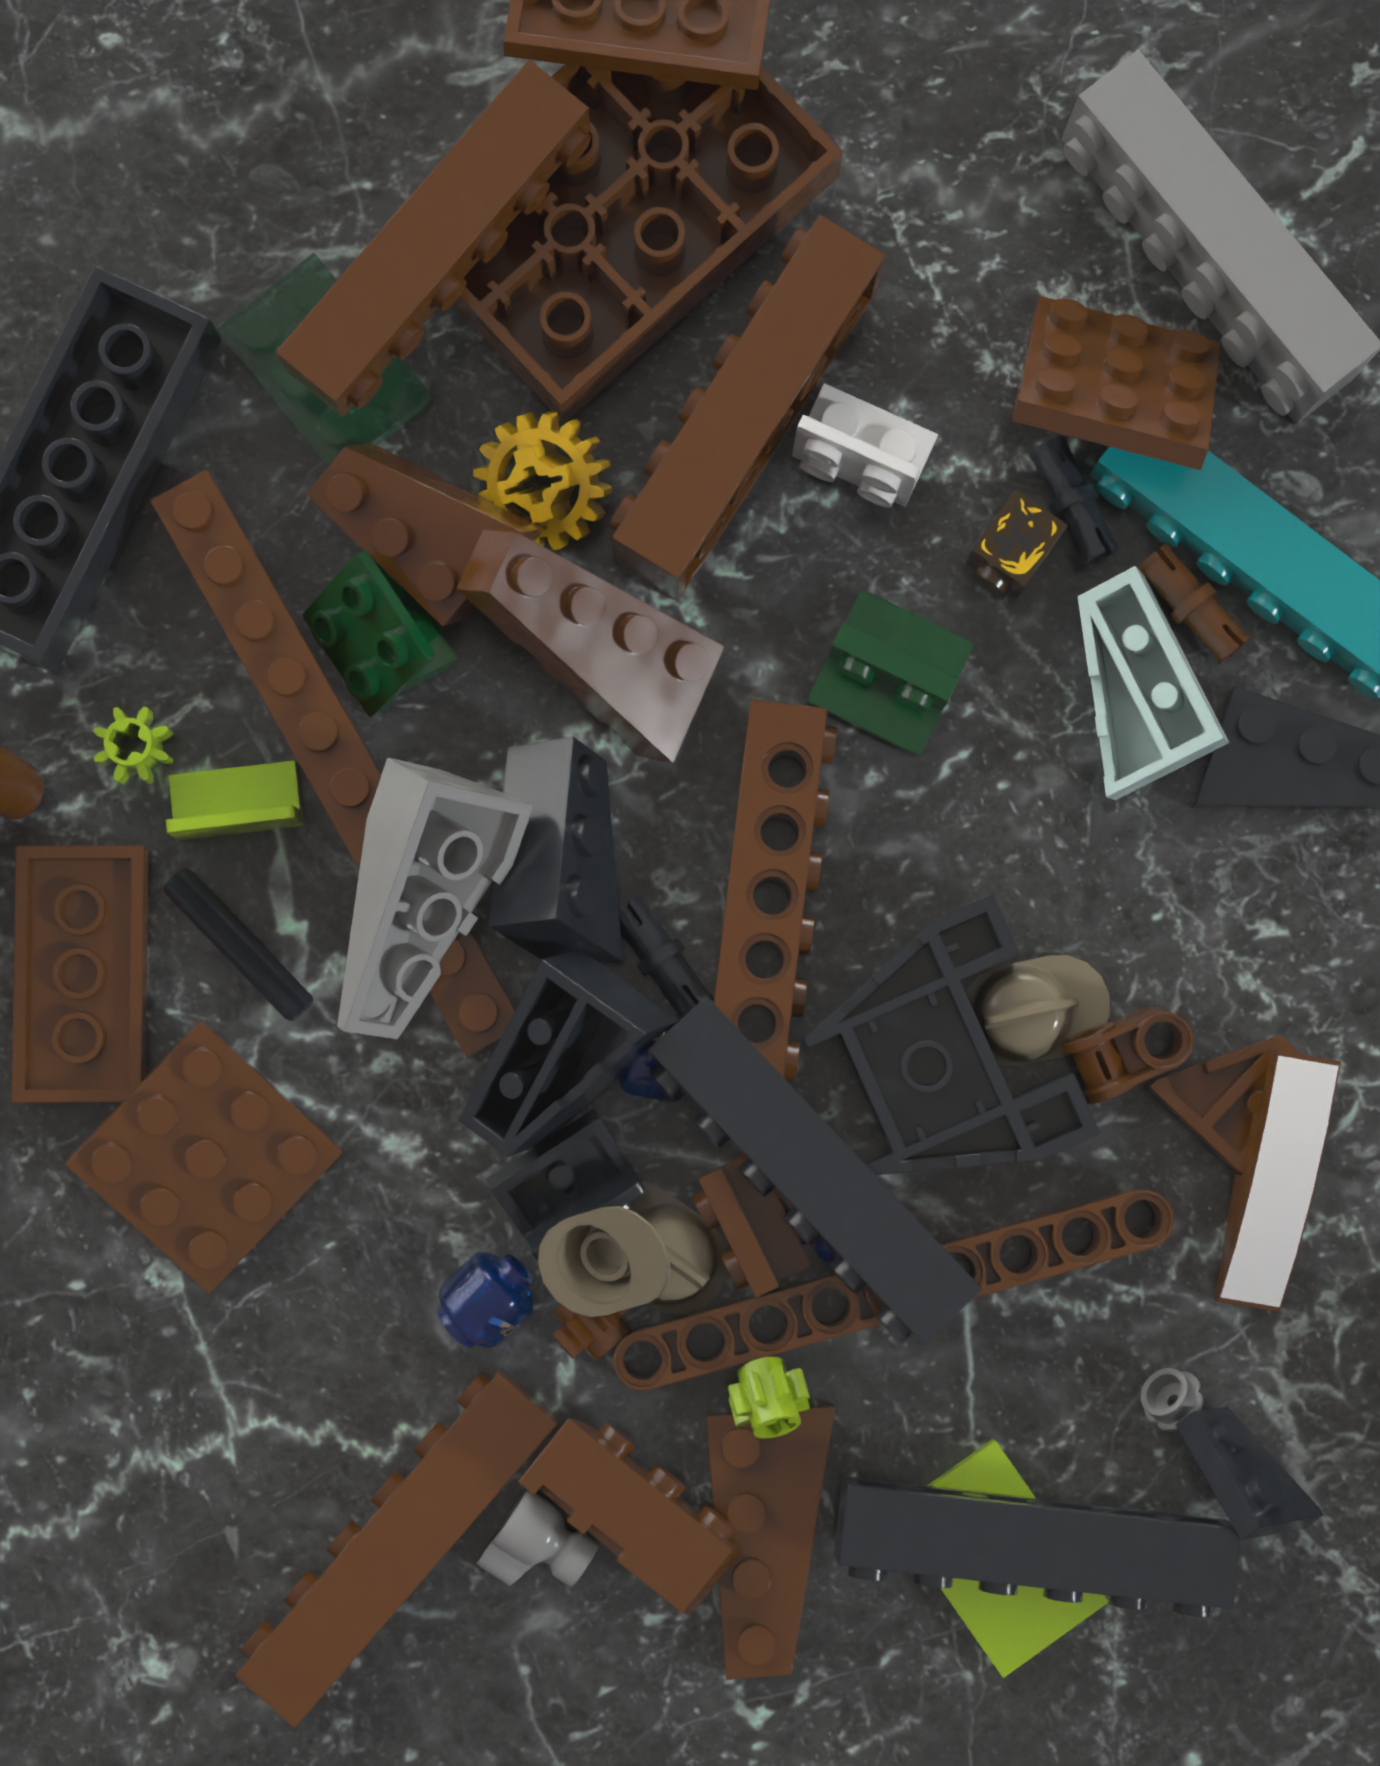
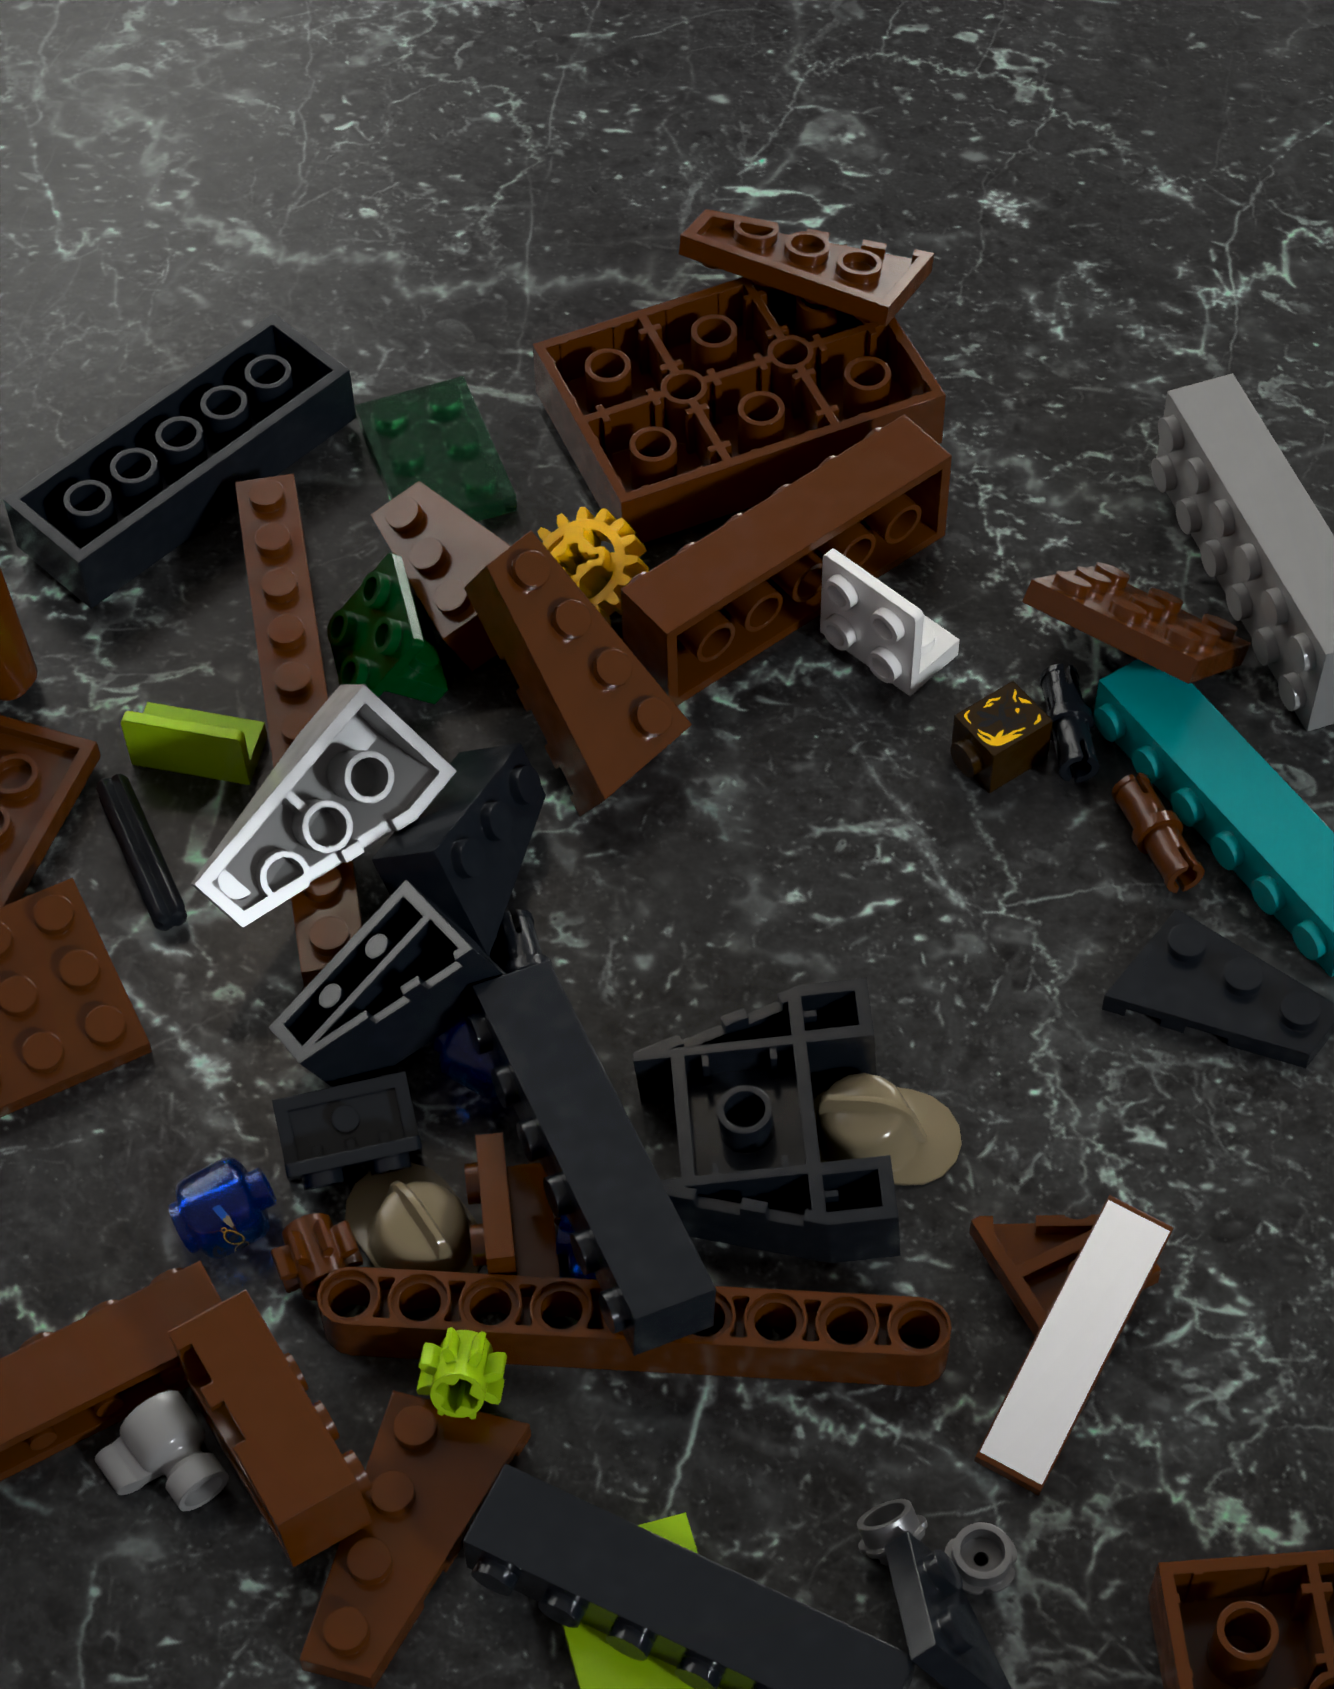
camera: 25 degrees right, 30 degrees down
(131, 729) = (128, 669): lime gear -> none
(437, 239) = (561, 352): reddish brown brick -> none
(604, 1261) = (348, 1167): dark tan piece -> none
(774, 732) = (709, 819): reddish brown brick -> none
(890, 672) = (841, 805): dark green bracket -> none
(1124, 1053) = (954, 1183): reddish brown piece -> none
(1142, 687) = (1080, 876): light aqua wedge -> none
(1267, 1396) = (995, 1545): none -> flat silver plate

